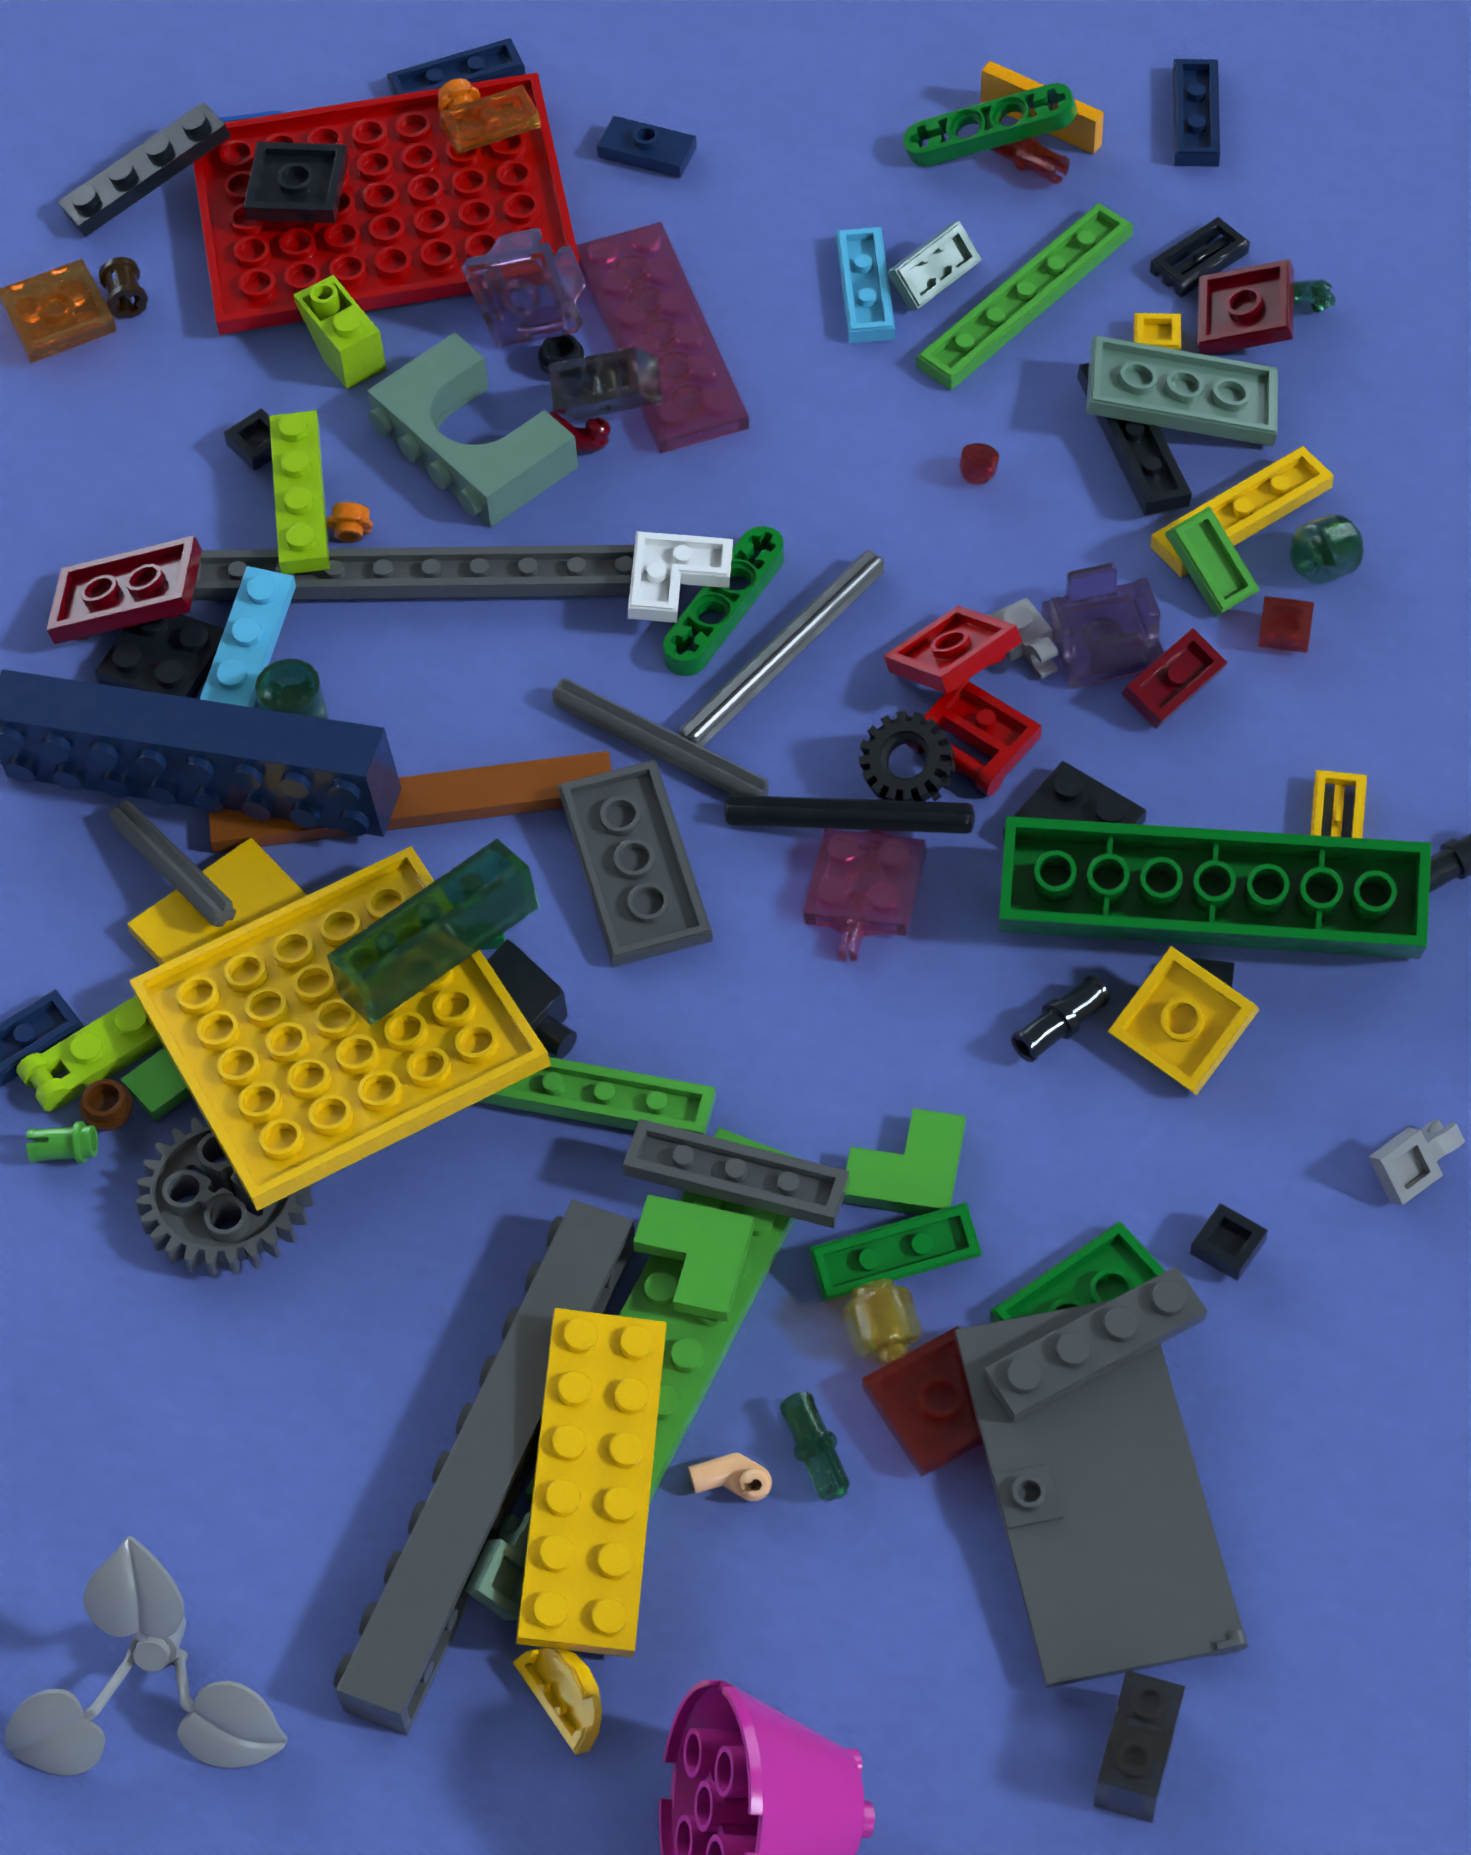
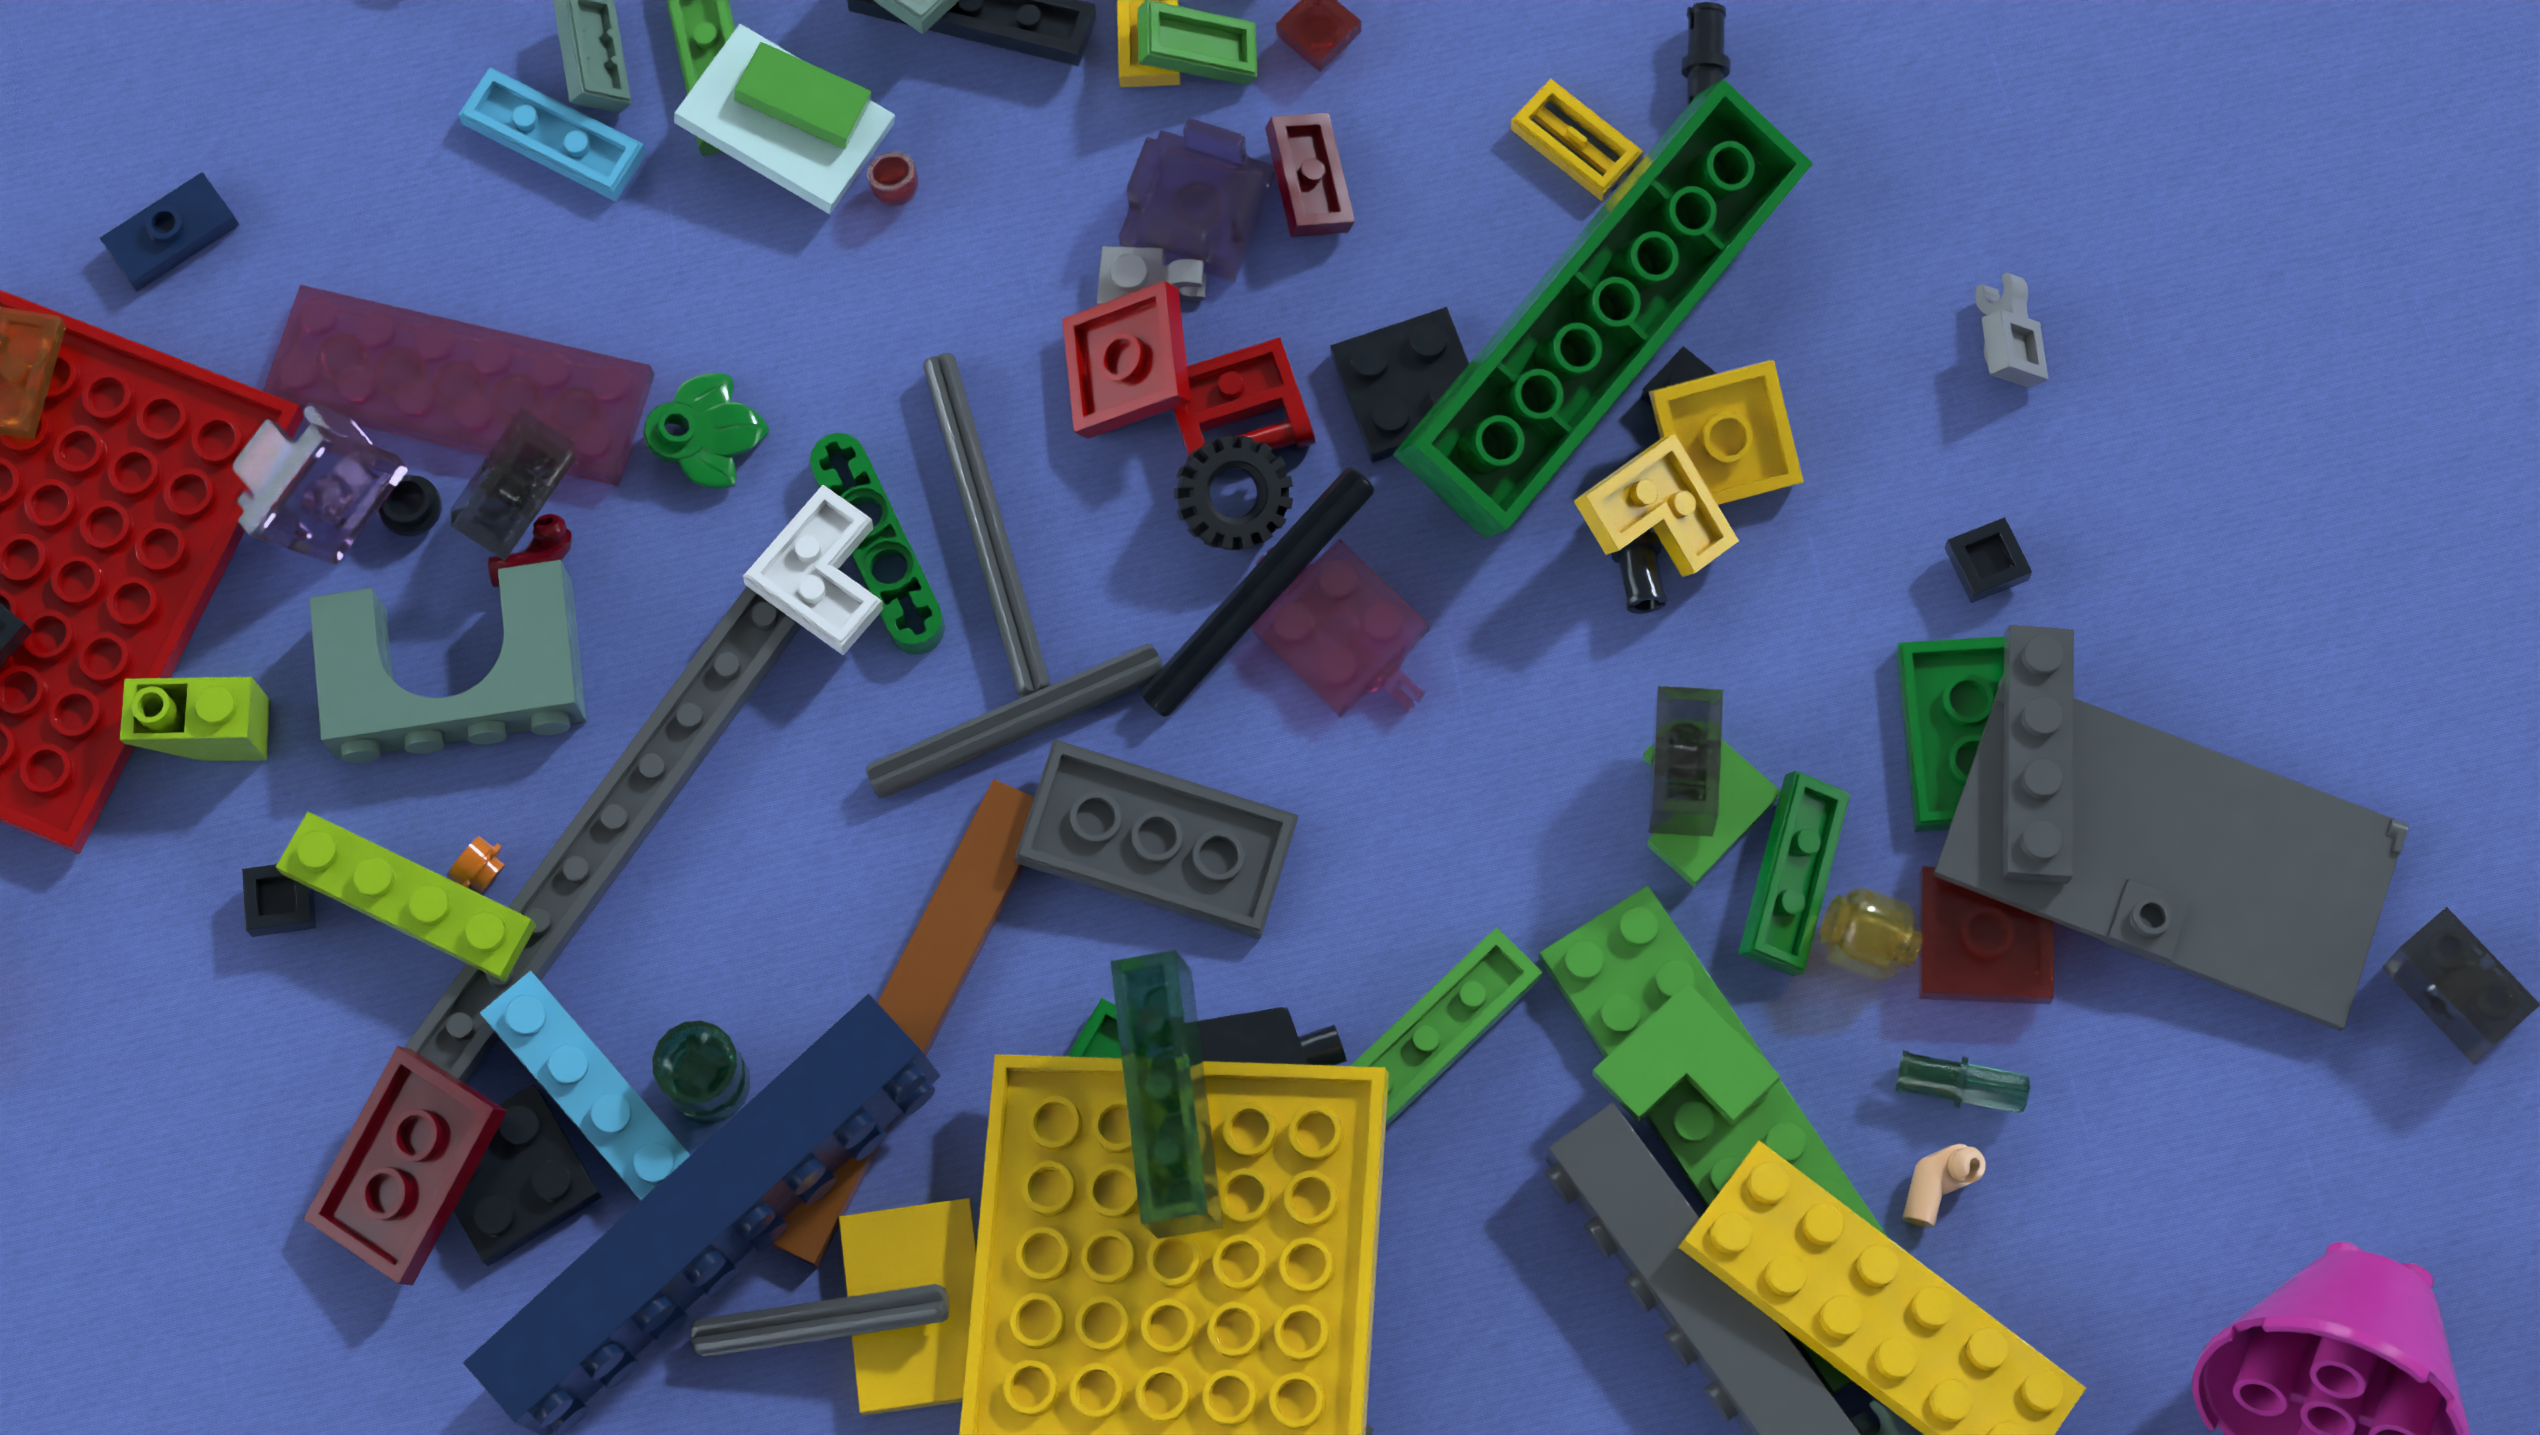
camera: 55 degrees left, 15 degrees up
(732, 473) = (713, 429): none -> green plate
(736, 1173) = (1625, 968): dark grey plate -> none
(913, 1119) = (1685, 761): none -> clear smoke brick
(970, 383) = (769, 146): none -> light aqua tile
(989, 377) = (802, 95): none -> bright green tile
(1105, 999) = (1664, 493): none -> yellow plate

